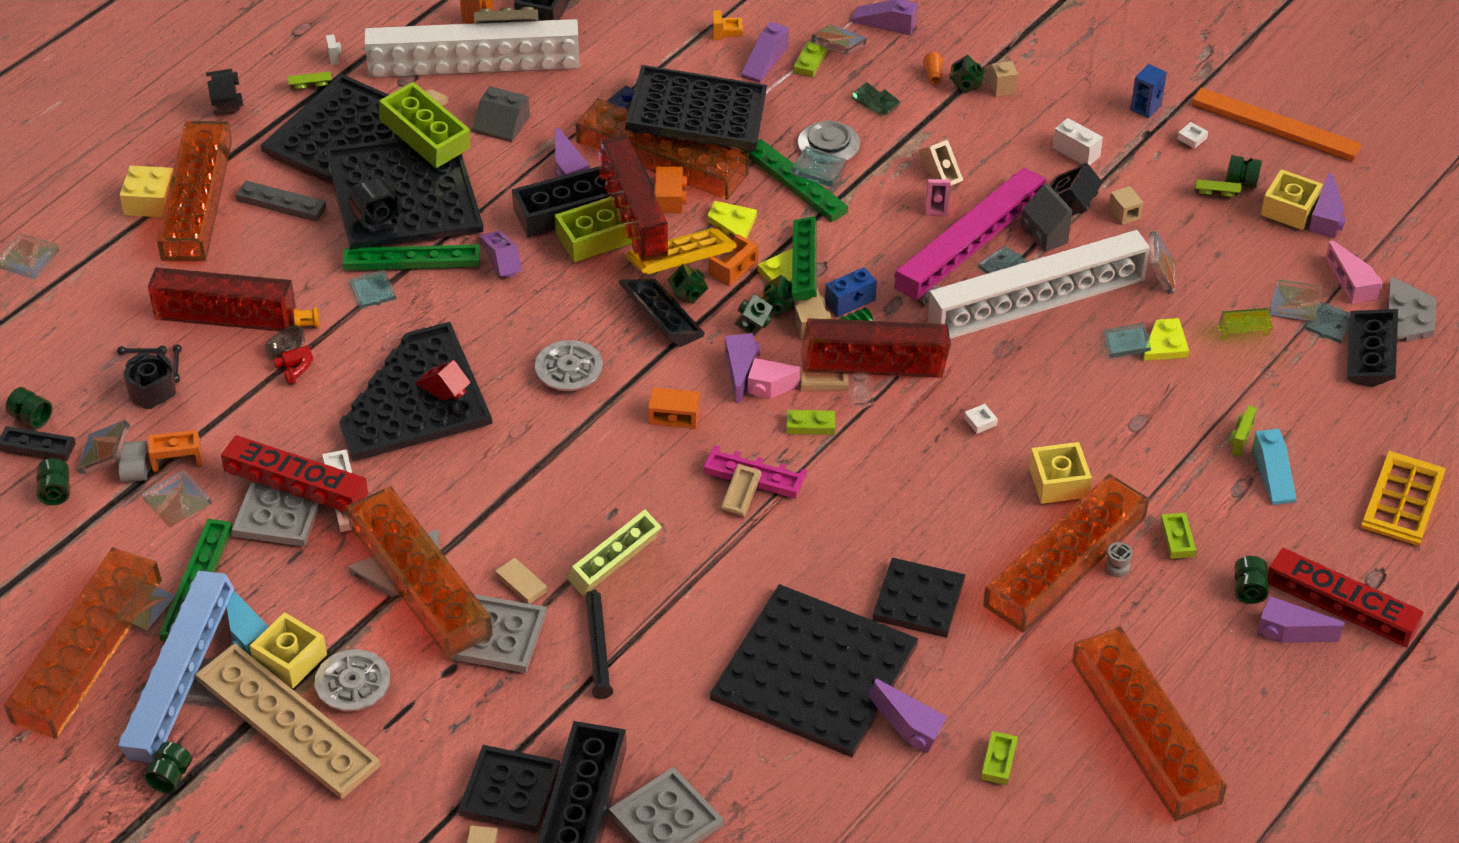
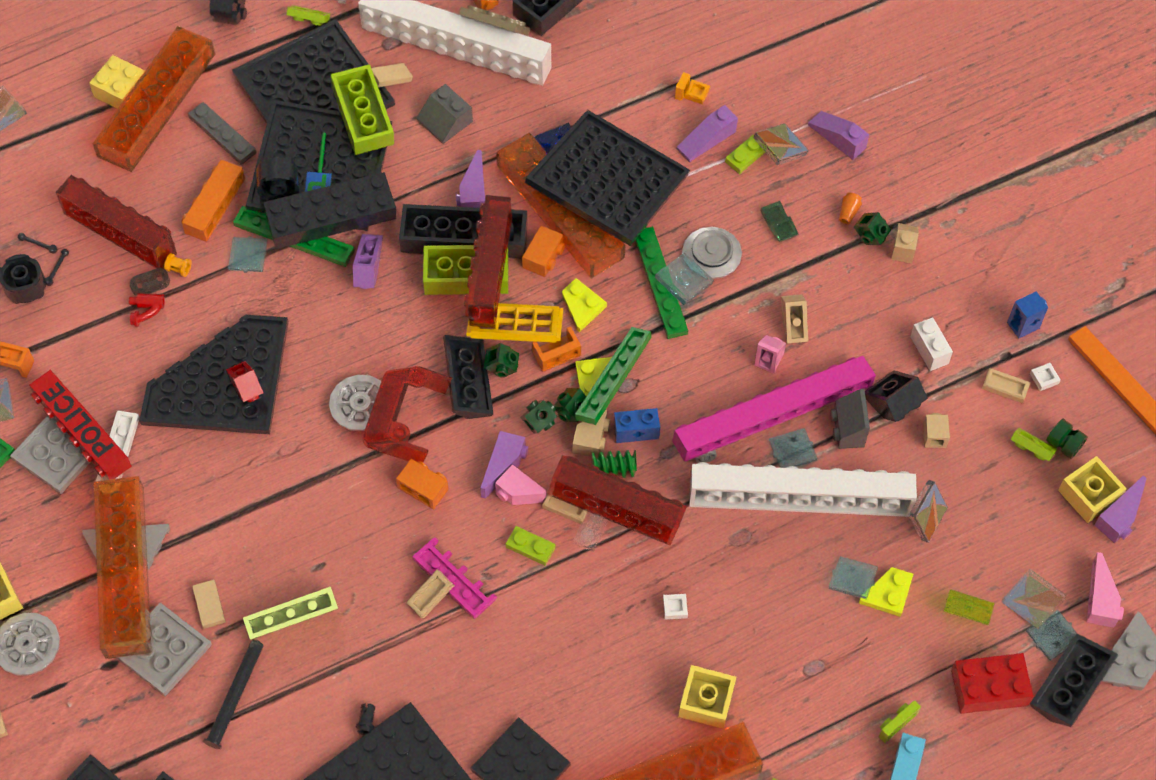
camera: 25 degrees right, 15 degrees up
(309, 254) = (213, 200): none -> orange brick
(414, 202) = (318, 180): none -> piece
(440, 218) = (330, 210): none -> black brick
(608, 368) = (382, 430): none -> clear red windscreen
(745, 616) = (366, 719): none -> black pin
(1162, 154) = (1006, 385): none -> tan tile
(1304, 372) = (992, 683): none -> red brick

